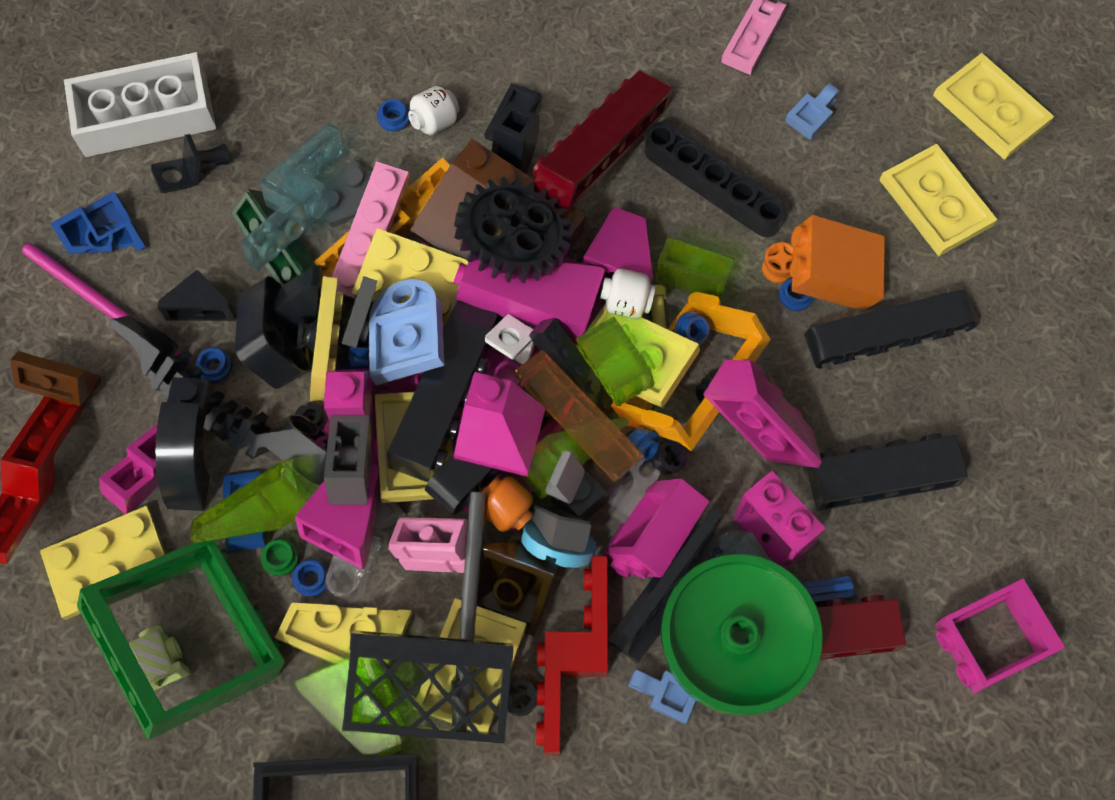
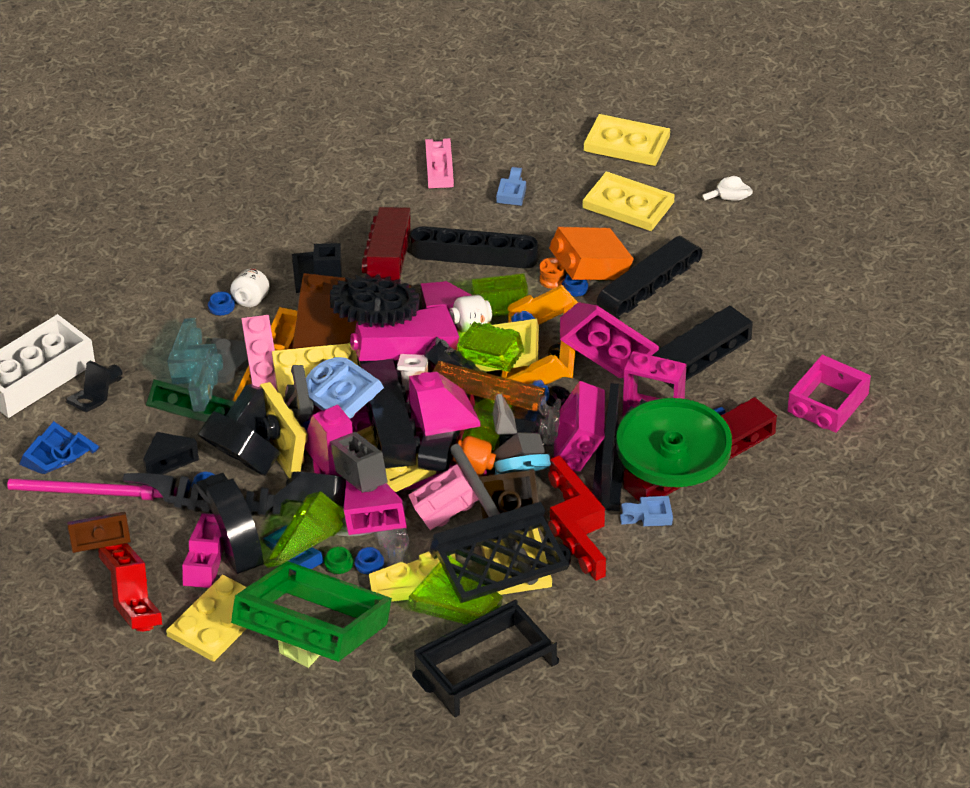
camera: 30 degrees left, 25 degrees down
(1074, 244) = (730, 189): none -> white piece

